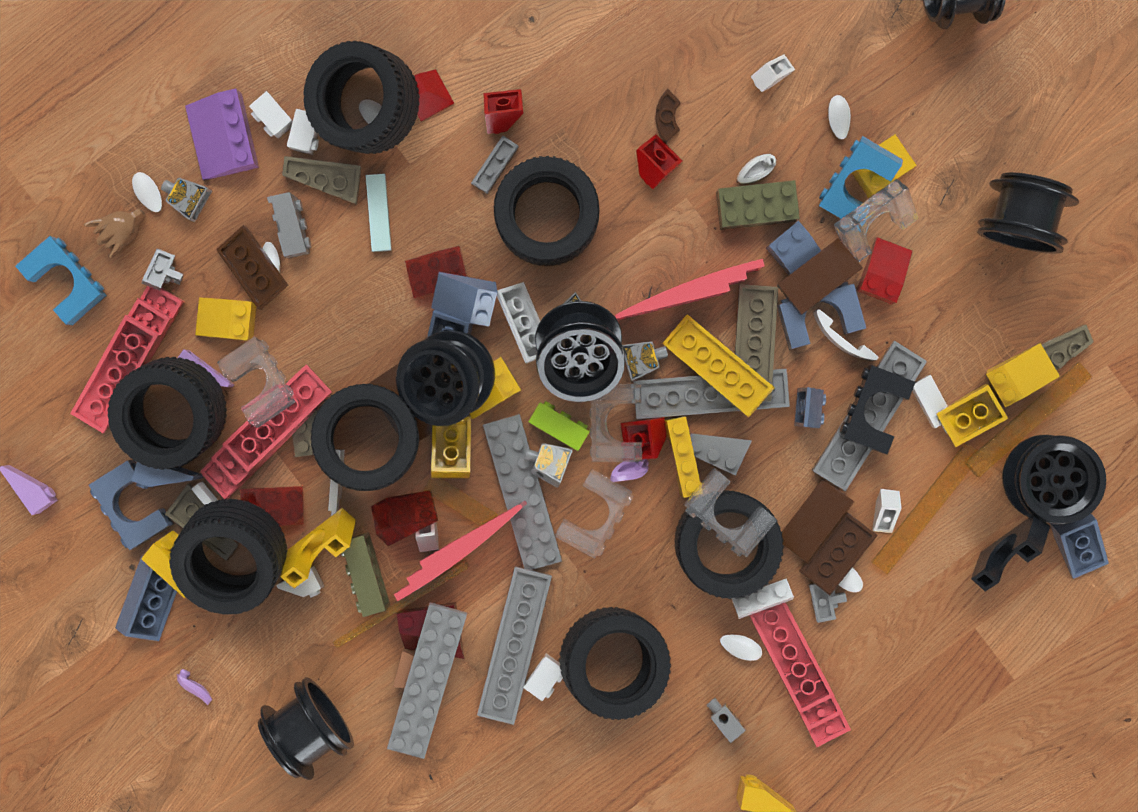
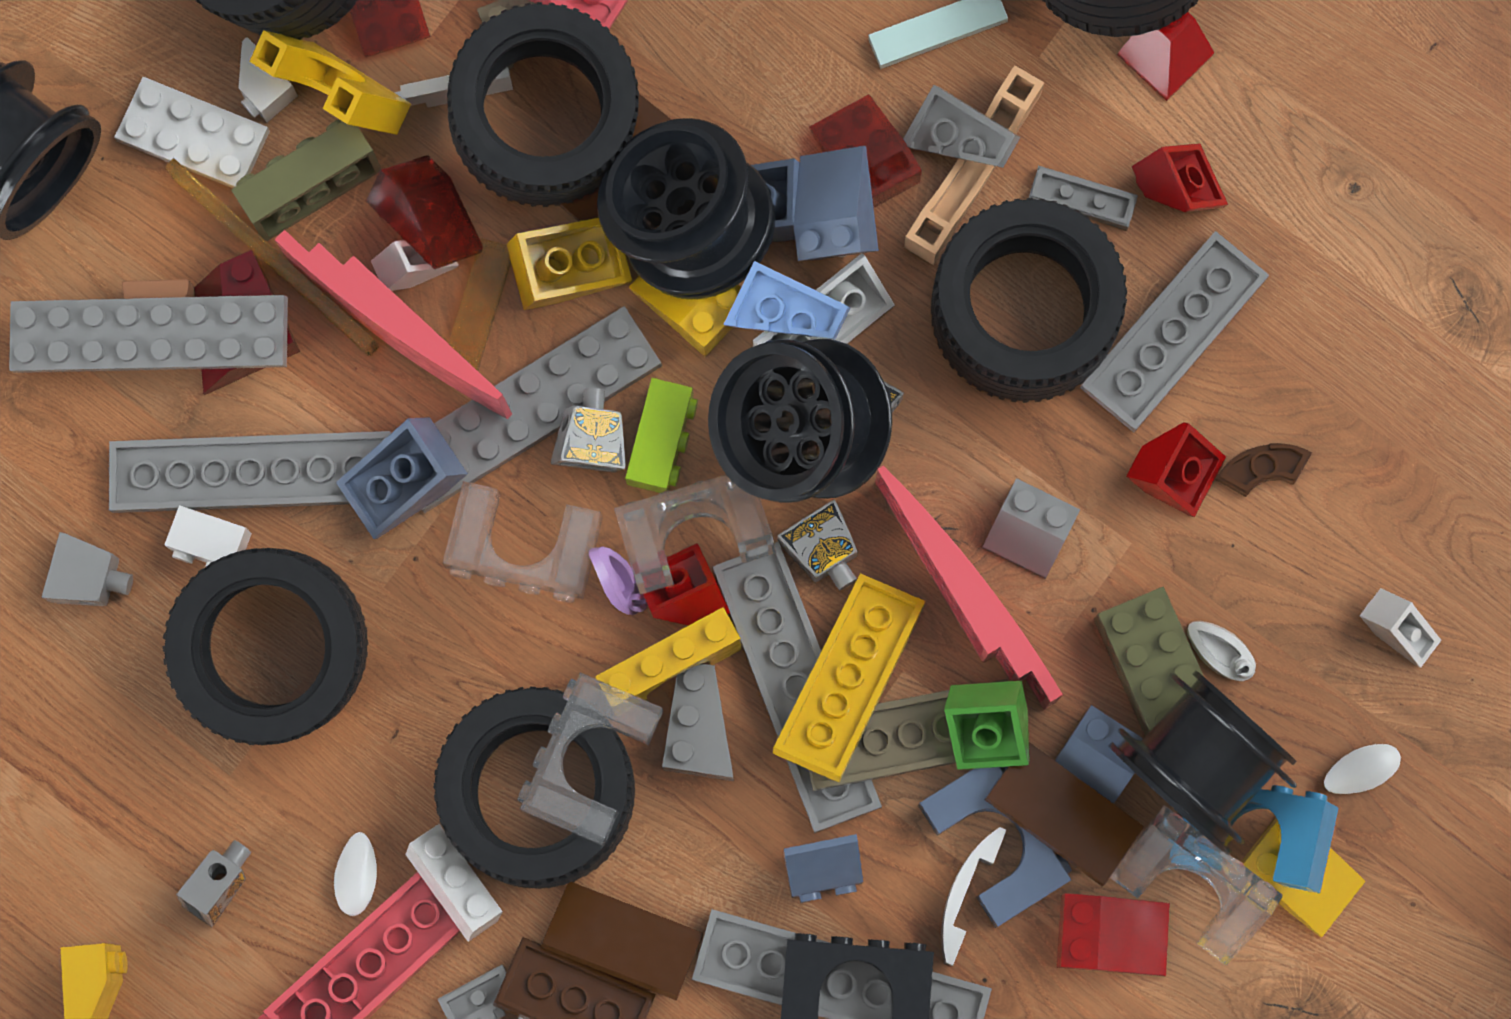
camera: 80 degrees right, 10 degrees down
(319, 628) = (192, 132): none -> white plate
(441, 219) = (959, 131): none -> light grey wing
(461, 216) = (966, 179): none -> light nougat arch
(512, 342) = (784, 306): none -> light blue wing
(542, 567) = (401, 476): none -> sand blue slope
(543, 746) = (83, 574): none -> light grey torso
(582, 138) = (1174, 331): none -> light grey plate
(665, 247) = (1031, 528): none -> light grey slope
(764, 301) = (988, 724): none -> bright green slope
(823, 196) = (1205, 759): none -> black wheel

